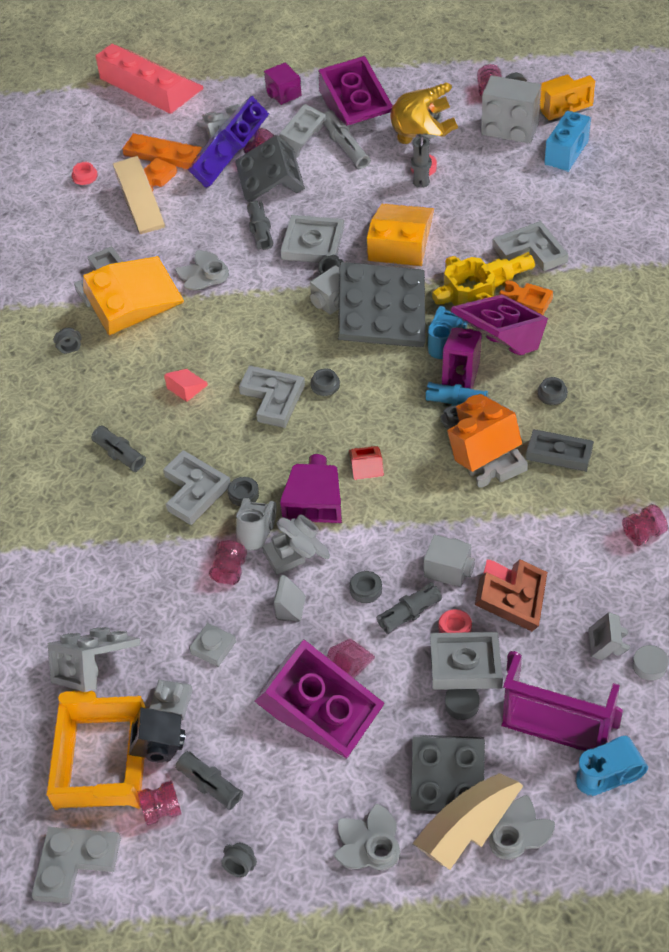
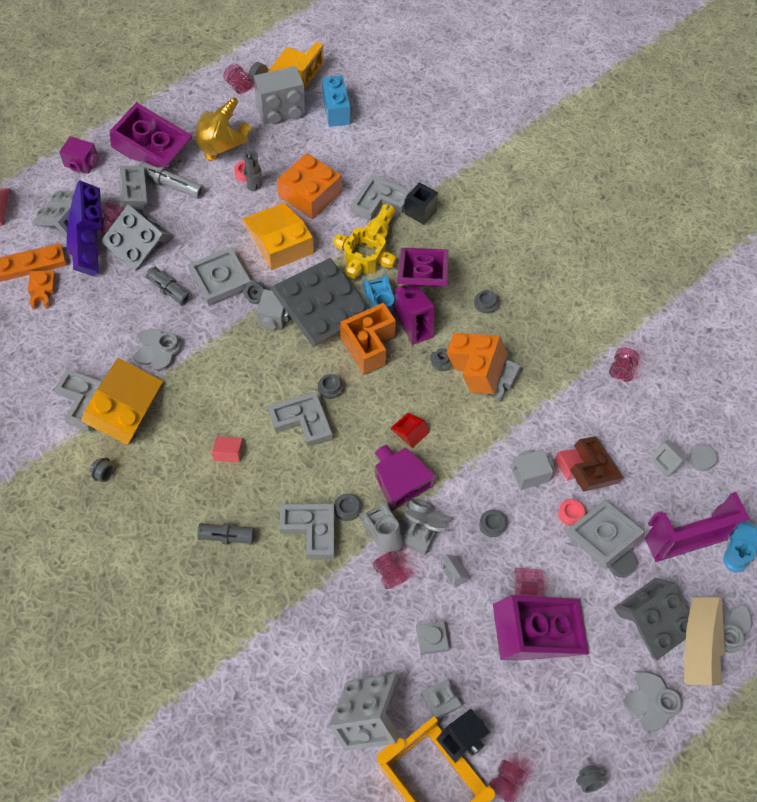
camera: 45 degrees left, 10 degrees up
(138, 195) = (47, 312): tan slope -> none
(209, 780) = (521, 738): dark grey pin -> none
(396, 351) = (364, 336): none -> orange brick
(409, 607) = (534, 519): dark grey pin -> none
(453, 395) = (427, 342): dark azure pin -> none
(469, 202) = (309, 185): none -> orange brick
(529, 296) = (411, 238): orange plate -> none
(559, 450) = (529, 342): dark grey plate -> none
(565, 268) = (421, 203): none -> black brick

